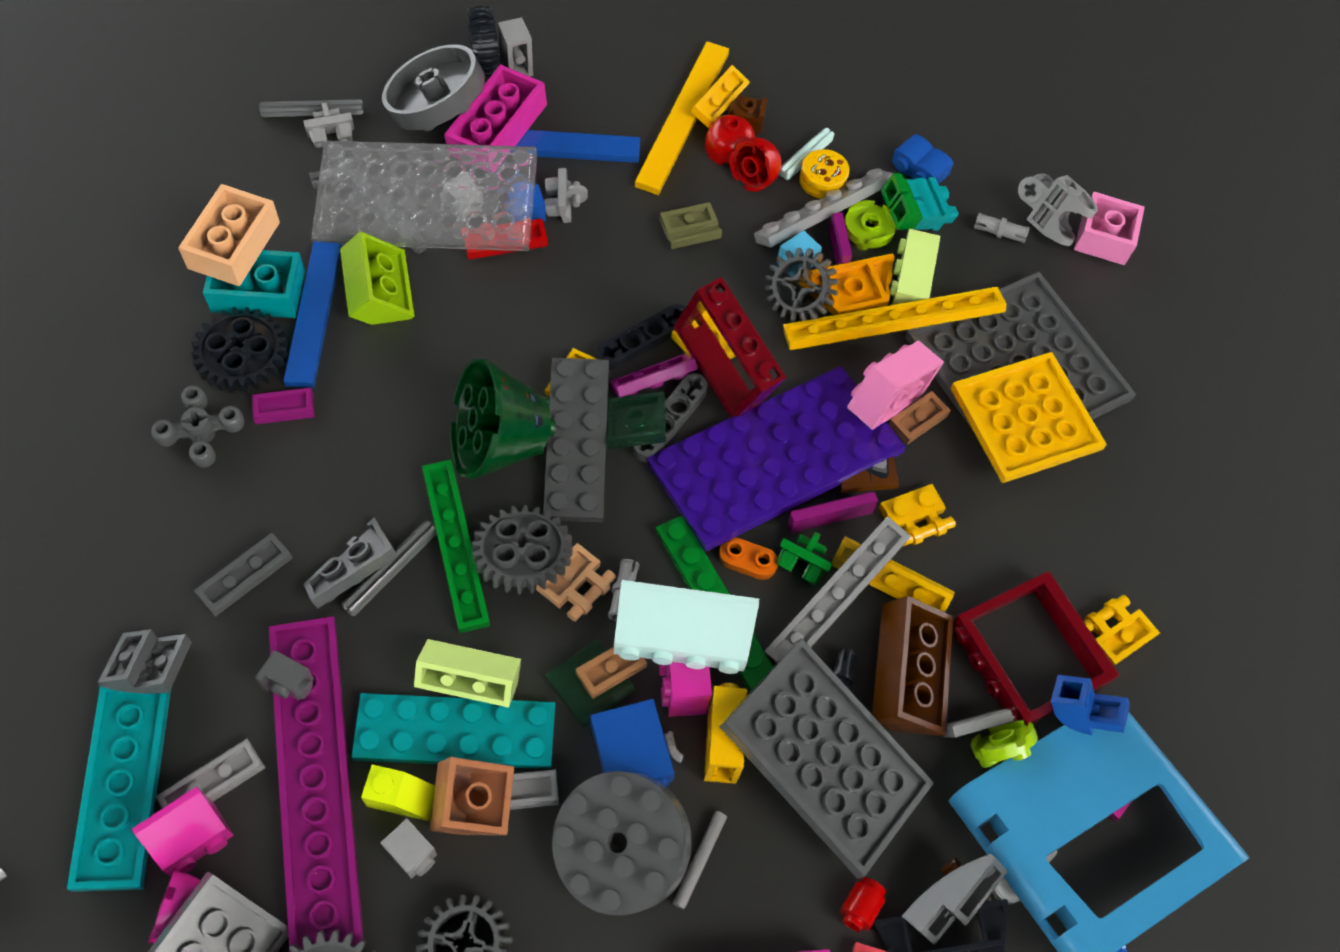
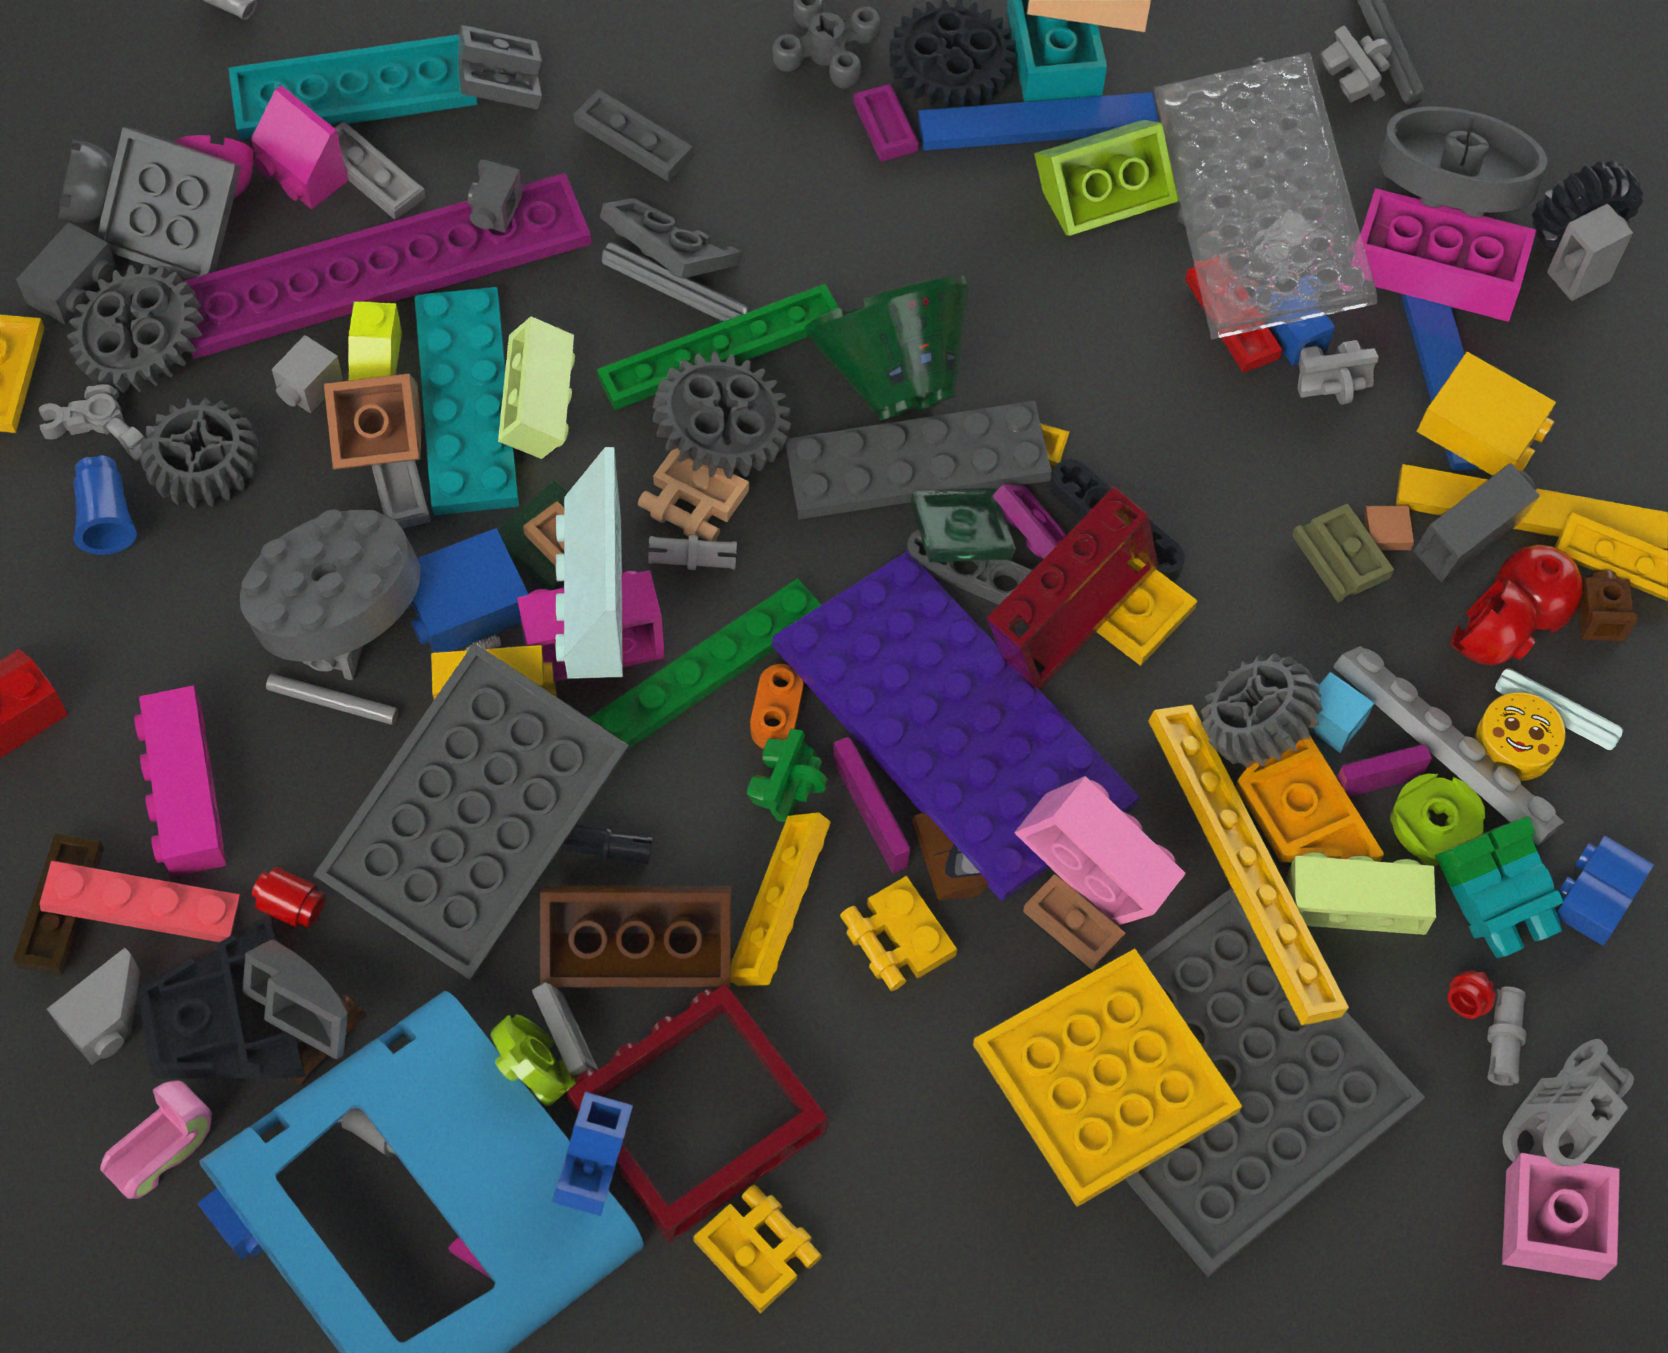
camera: 85 degrees right, 0 degrees up
(617, 129) = (1487, 416): none -> yellow brick
(674, 198) = (1389, 526): none -> nougat tile
(696, 149) = (1476, 522): none -> dark grey brick
(841, 588) = (733, 816): light grey plate -> none
(977, 236) = (1471, 994): none -> red plate

